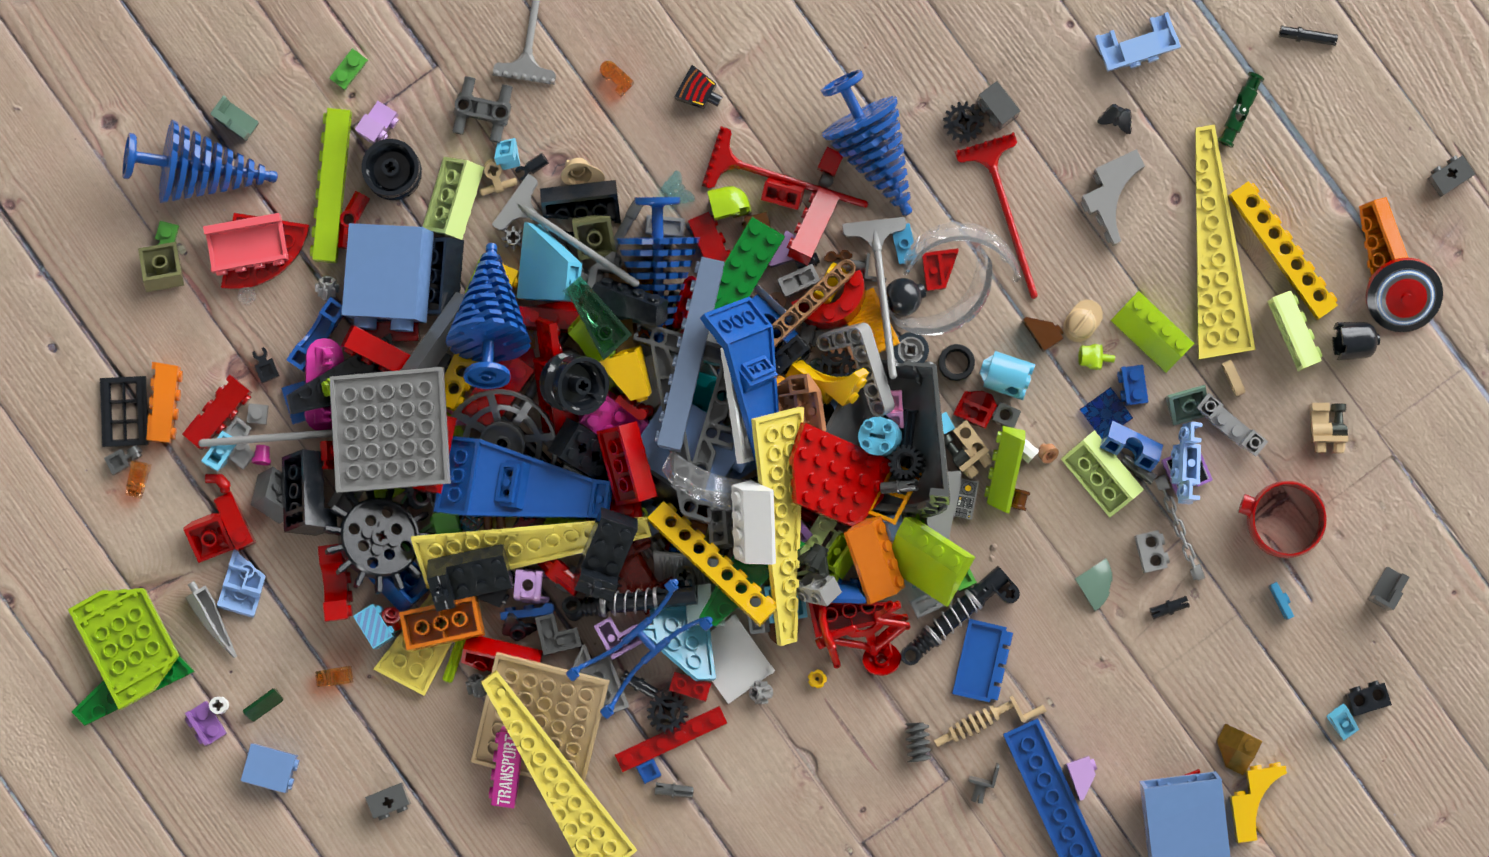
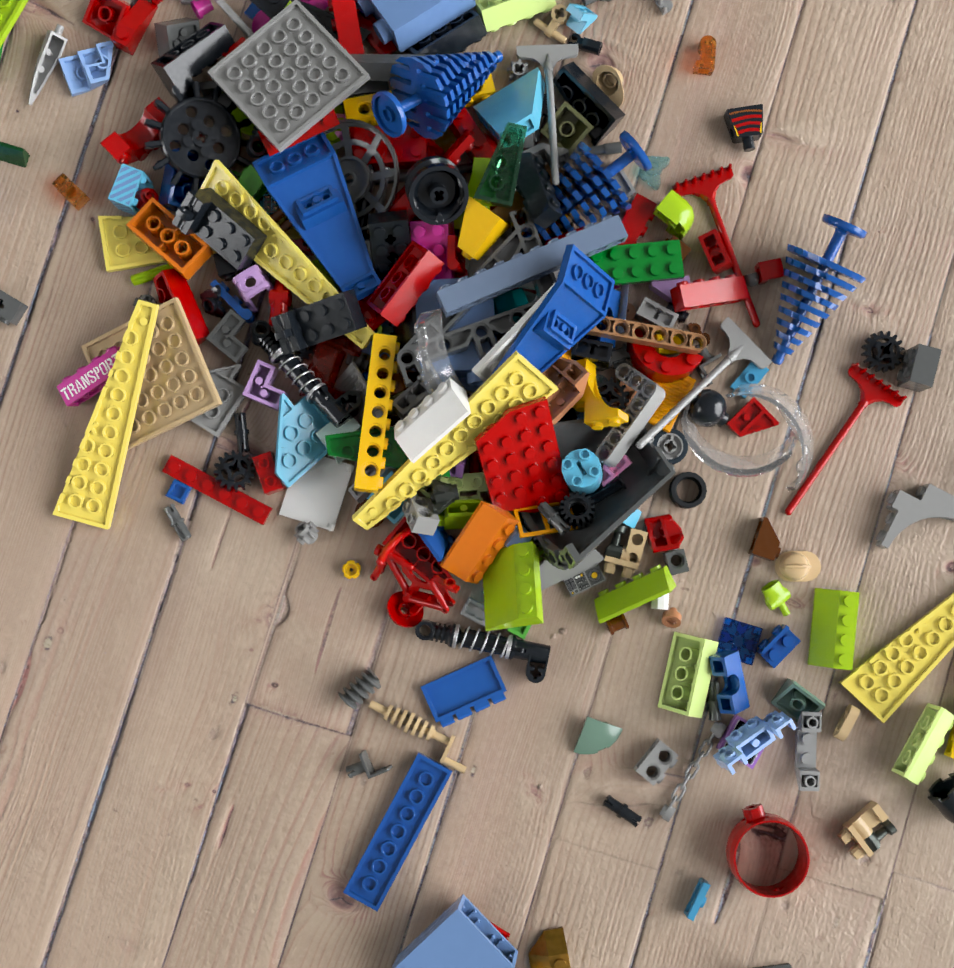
camera: 50 degrees right, 0 degrees up
(671, 586) = (317, 441): blue bar -> none
(1006, 374) = (709, 537): medium azure cylinder -> none
(1082, 775) = (433, 842): lavender slope -> none

